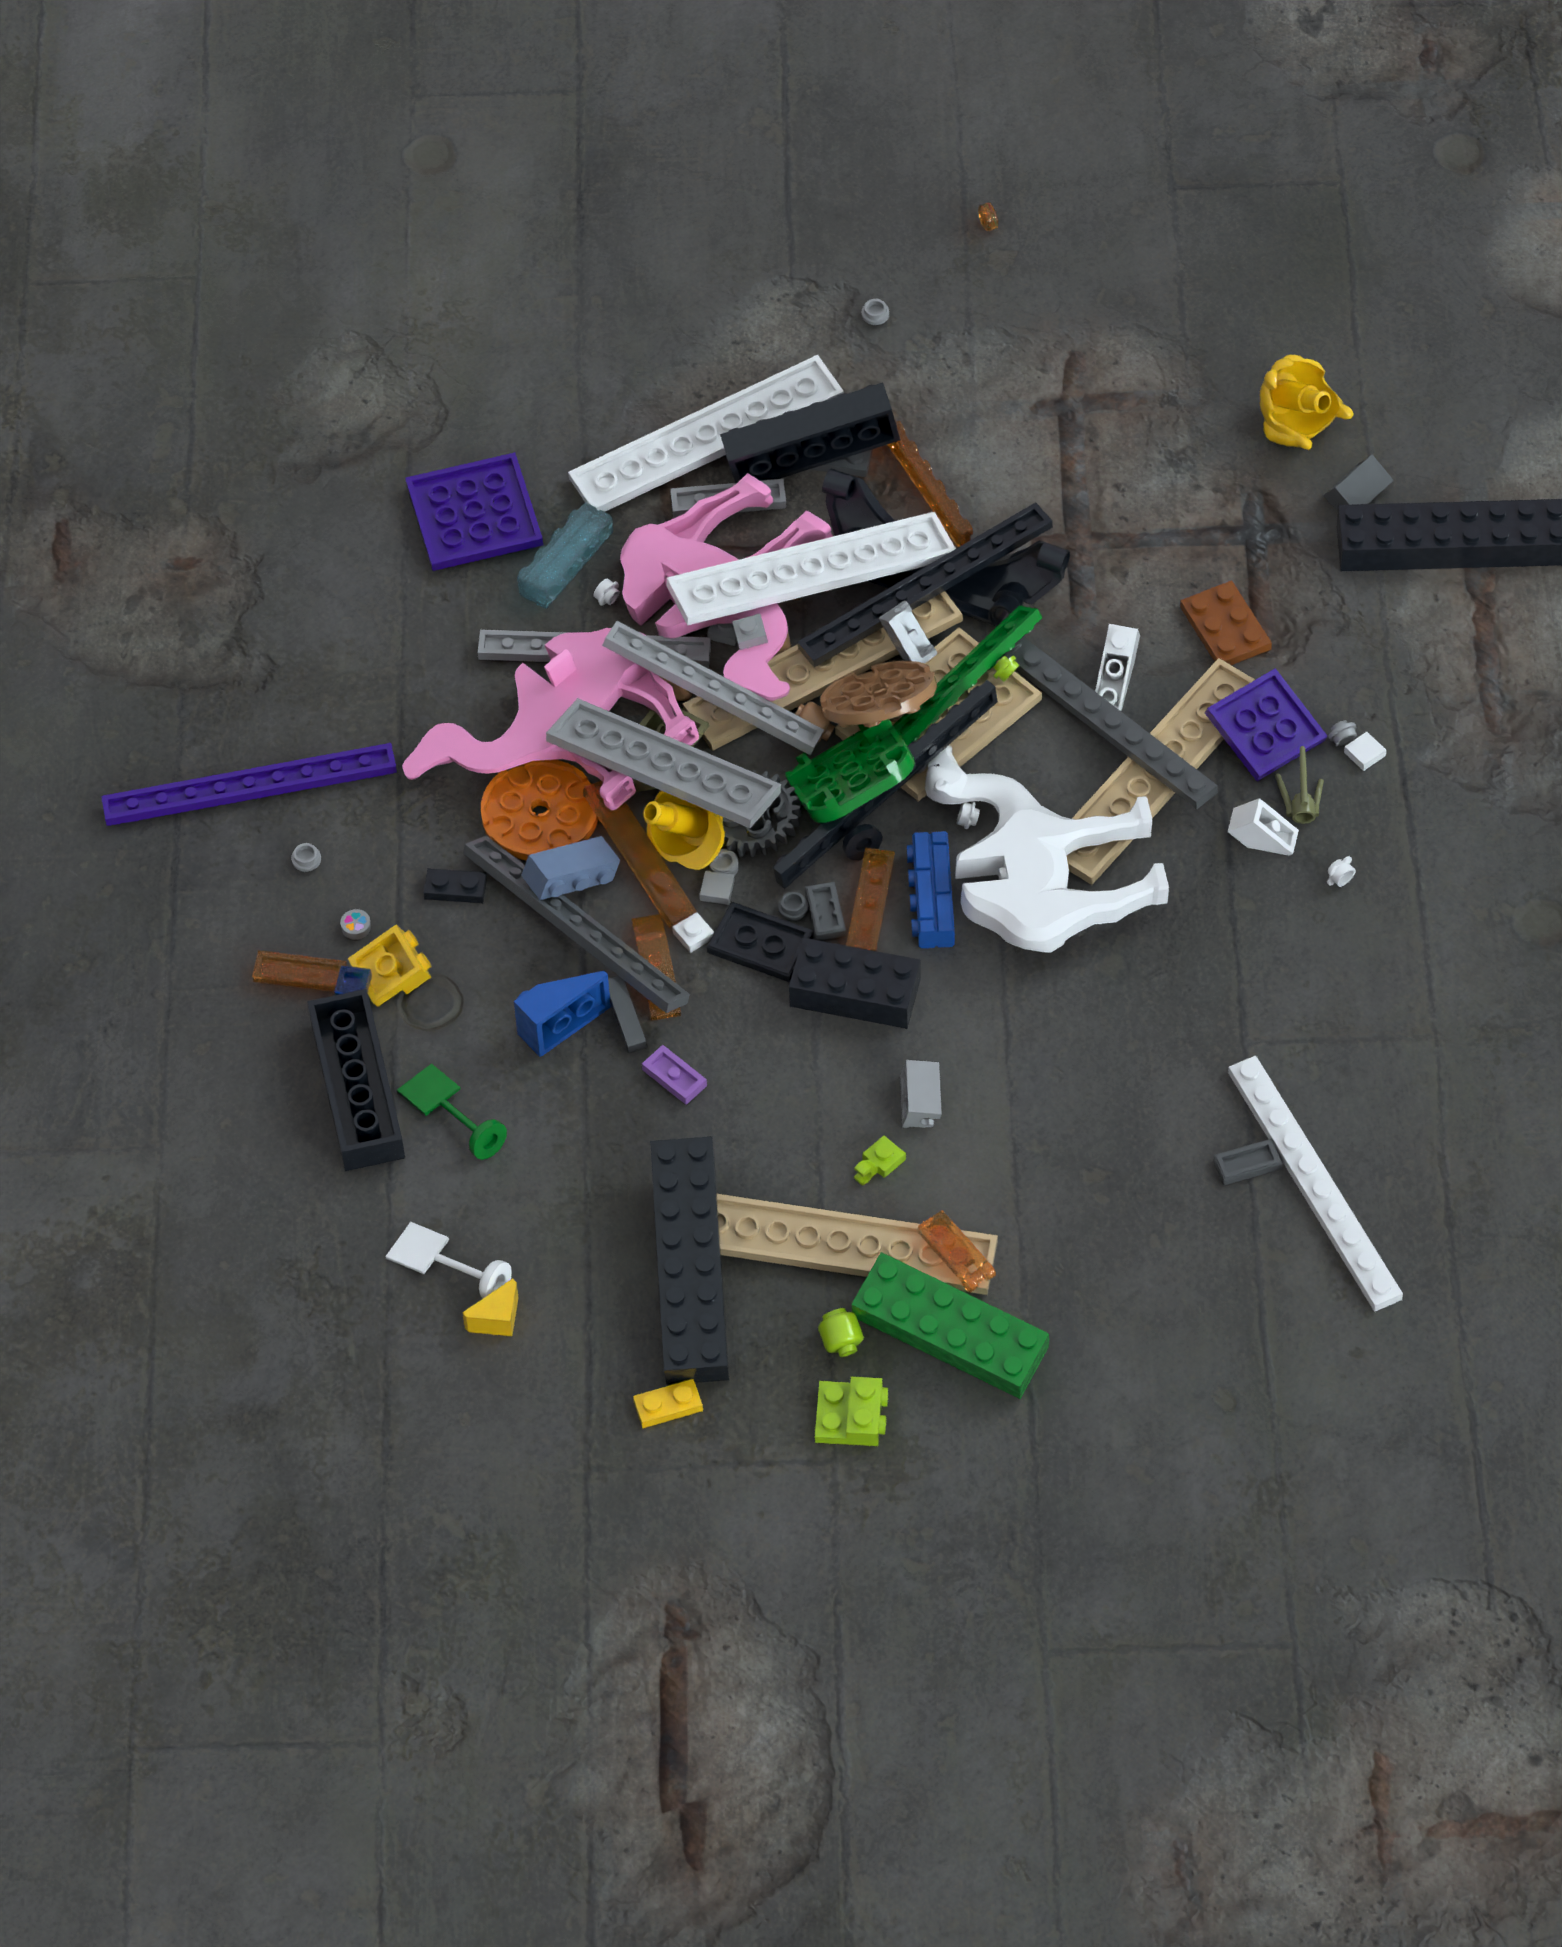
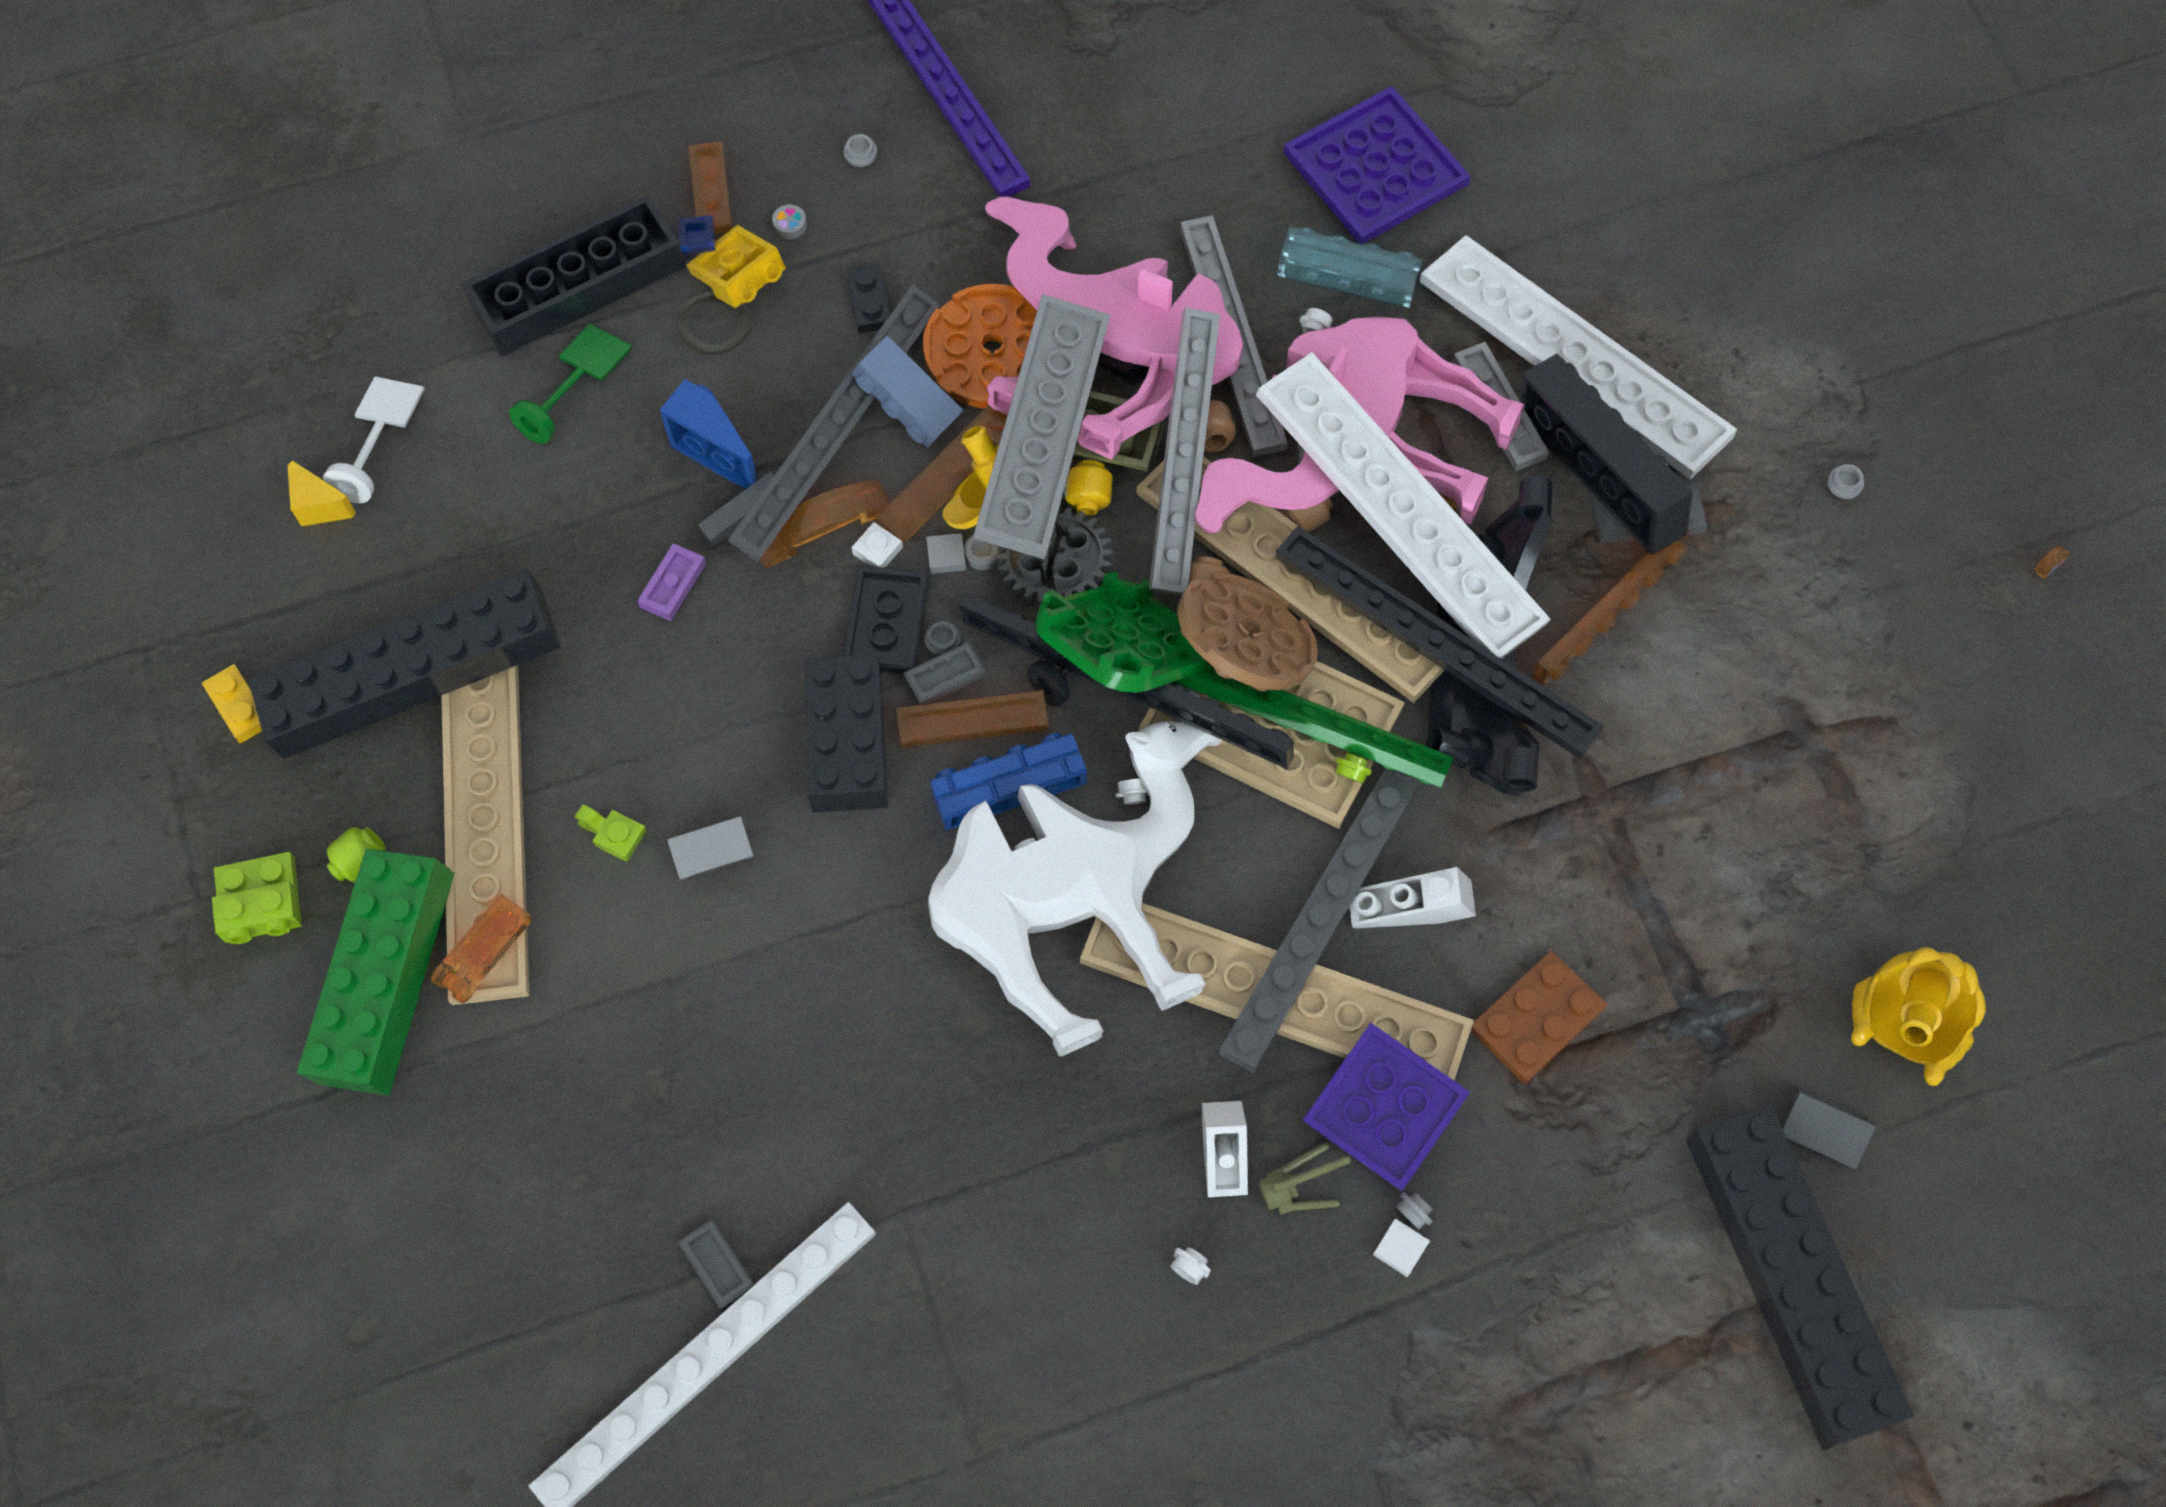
camera: 70 degrees right, 10 degrees up
(750, 631) = (1282, 467): light grey plate -> none
(907, 634) = (1350, 642): hinge -> none

